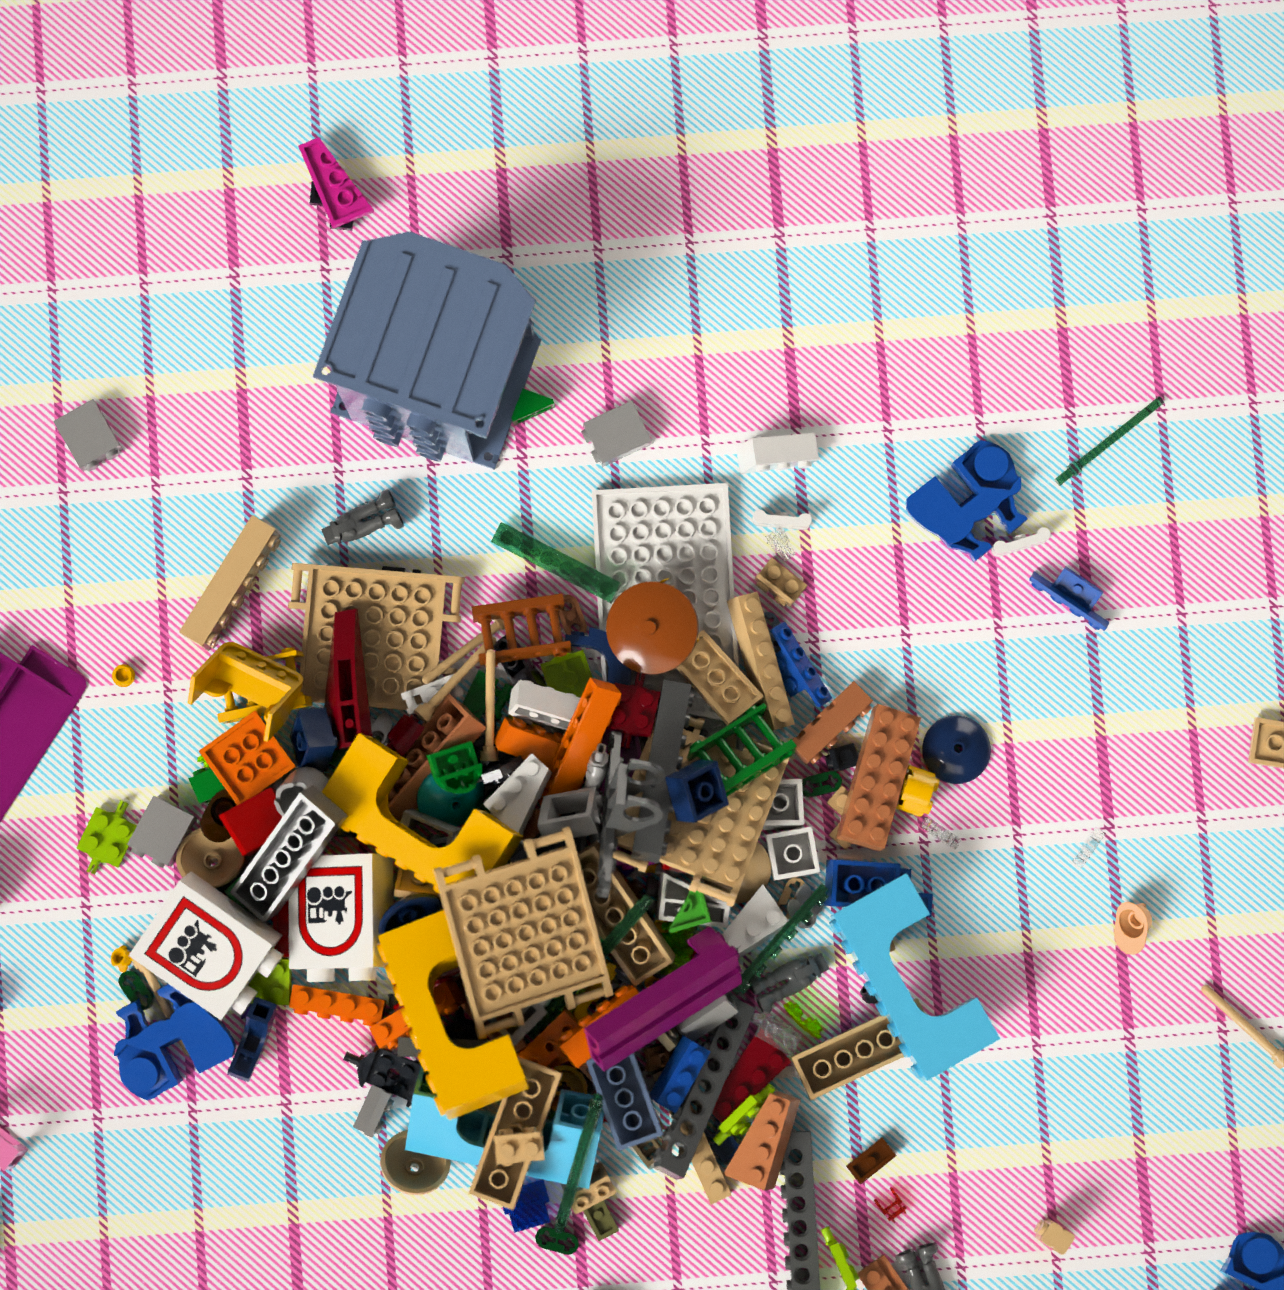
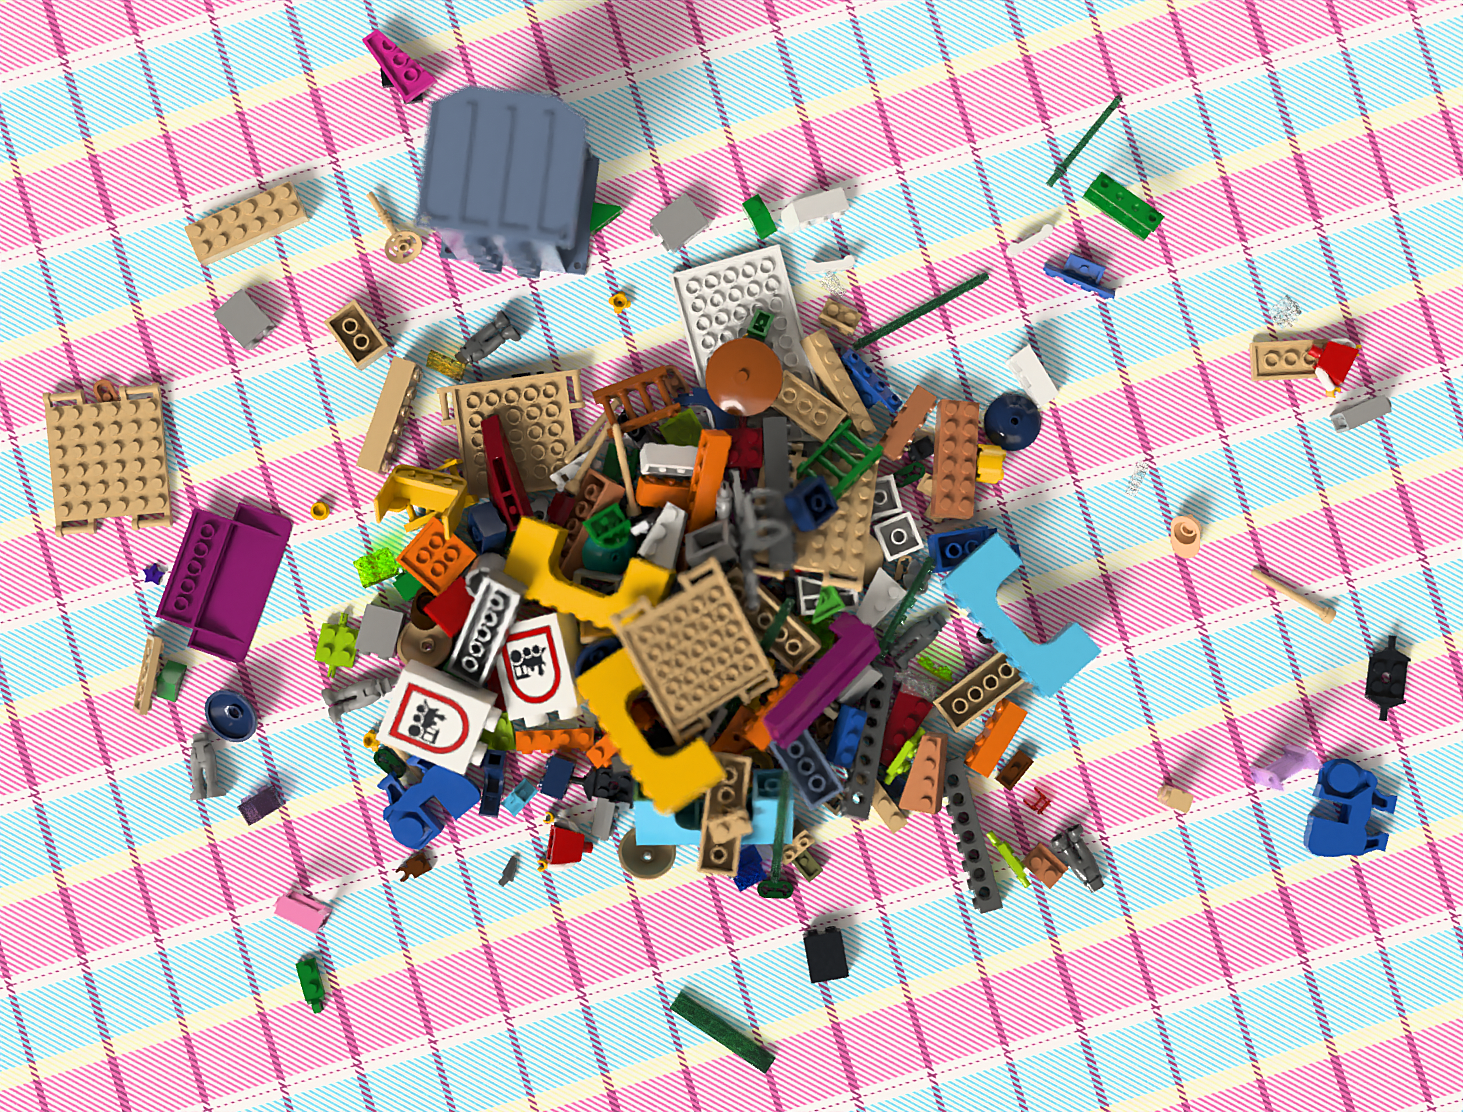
camera: 10 degrees left, 5 degrees up
(116, 326) = (246, 223): none -> tan brick
(128, 898) = (366, 691): none -> light grey piece
(139, 1119) = (416, 866): none -> reddish brown plate
(174, 756) = (376, 567): none -> clear neon green bracket
(215, 481) = (357, 335): none -> tan brick
(246, 1150) = (508, 872): none -> dark grey bar
(280, 1063) = (519, 797): none -> medium azure hips
(289, 383) = (399, 236): none -> tan dish
(309, 539) = (445, 365): none -> clear yellow plate
(319, 1132) = (564, 845): none -> red torso
(330, 1048) = (558, 776): none -> dark blue brick
(531, 504) = (619, 297): none -> yellow plate
(556, 562) = (652, 340): clear green plate -> none
(685, 572) = (760, 325): none -> green slope
(711, 446) = (759, 217): none -> green slope
(856, 1116) = (995, 737): none -> orange brick
(876, 596) = (920, 311): none -> clear green piece
(940, 833) = (1014, 493): clear beam -> none
(990, 701) = (1032, 376): none -> white wedge
(991, 479) = (996, 196): blue animal -> none
(1136, 526) = (1123, 206): none -> green fence
(1205, 1218) = (1291, 763): none -> lavender fence

